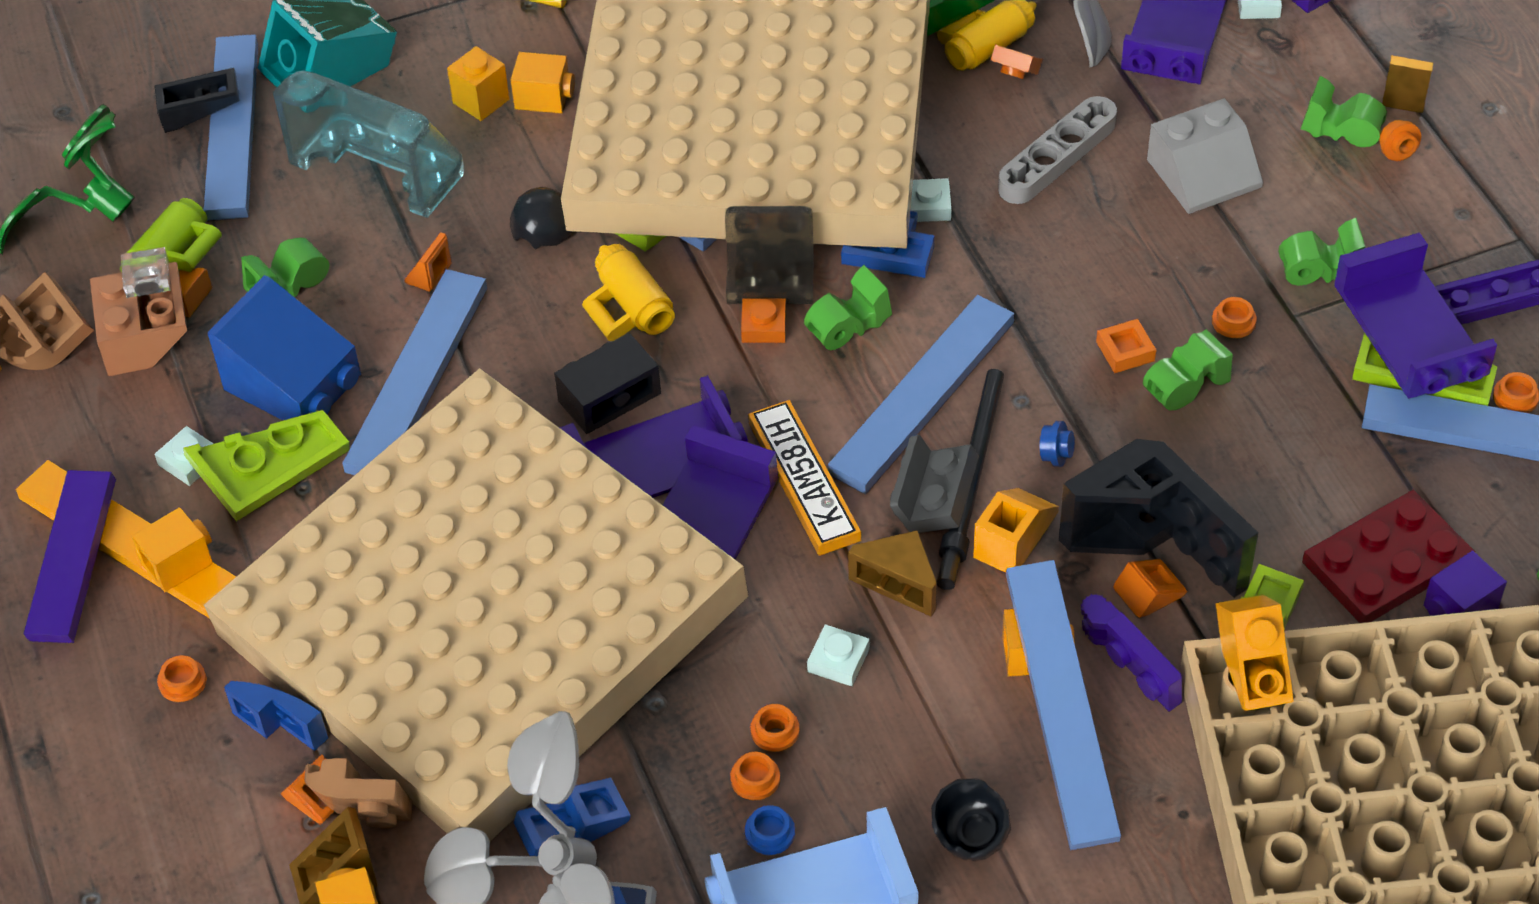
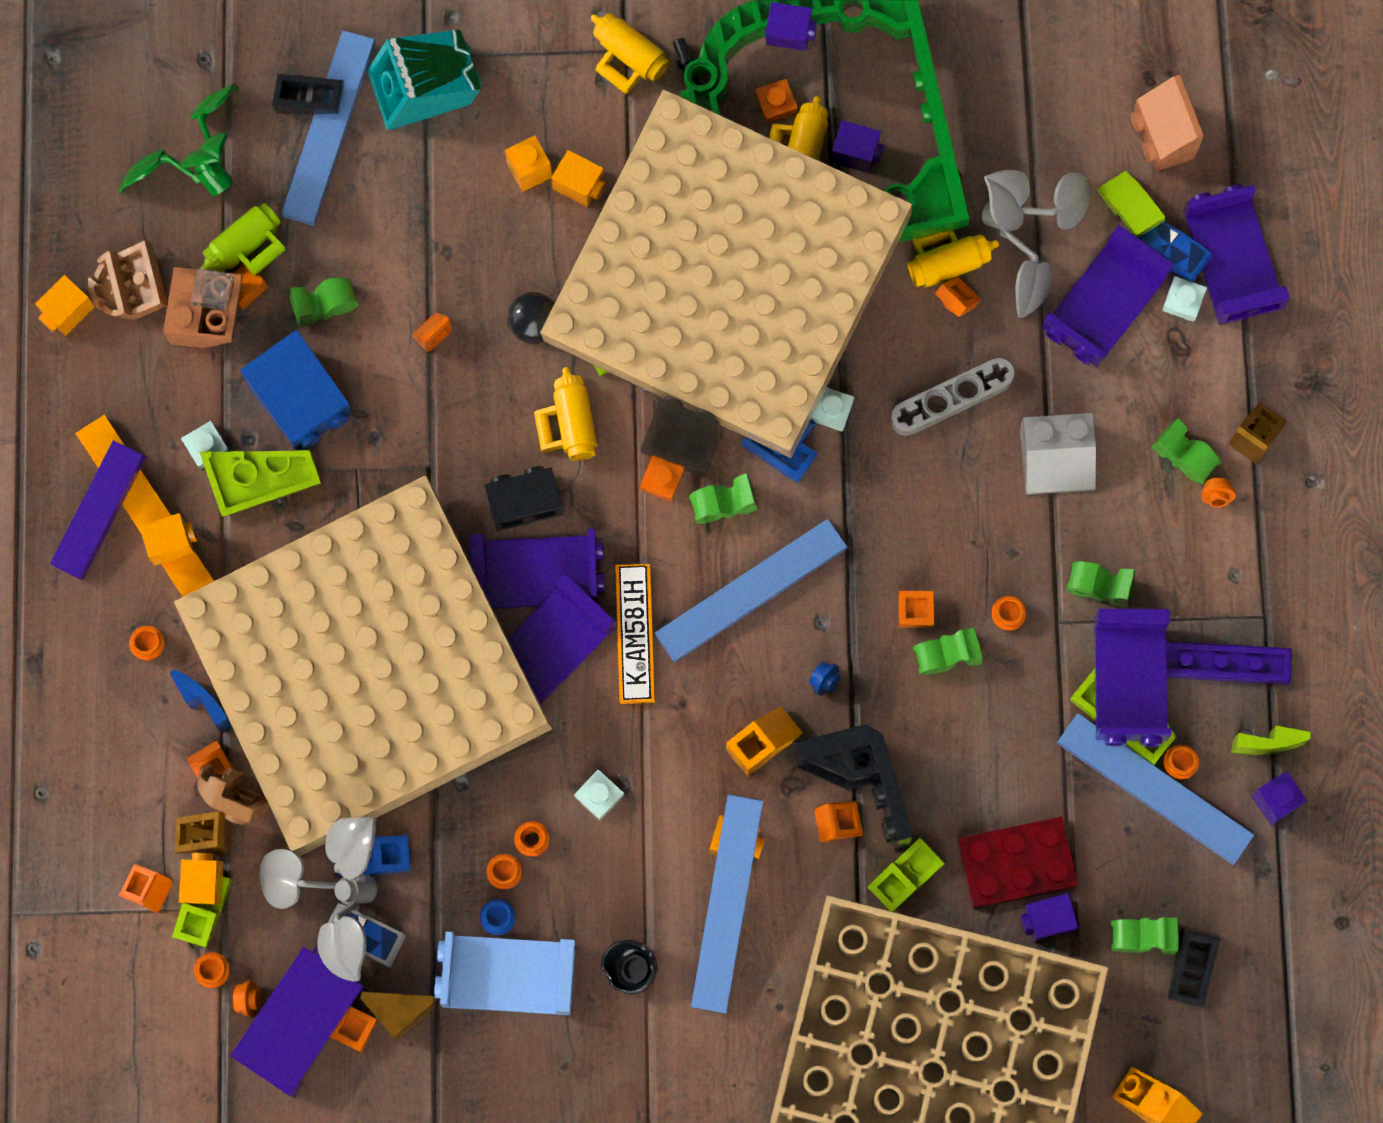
camera: 20 degrees right, 25 degrees up
(332, 118) = (459, 224): clear light blue windscreen -> none
(418, 367) = (391, 431): medium blue tile -> none
(895, 569) = (666, 743): pearl gold slope -> none
(933, 486) = (720, 682): dark grey bracket -> none
(955, 542) = (716, 736): black bar -> none
(1130, 648) = (796, 872): dark purple hinge -> none
(1255, 651) = (864, 929): light orange slope -> none

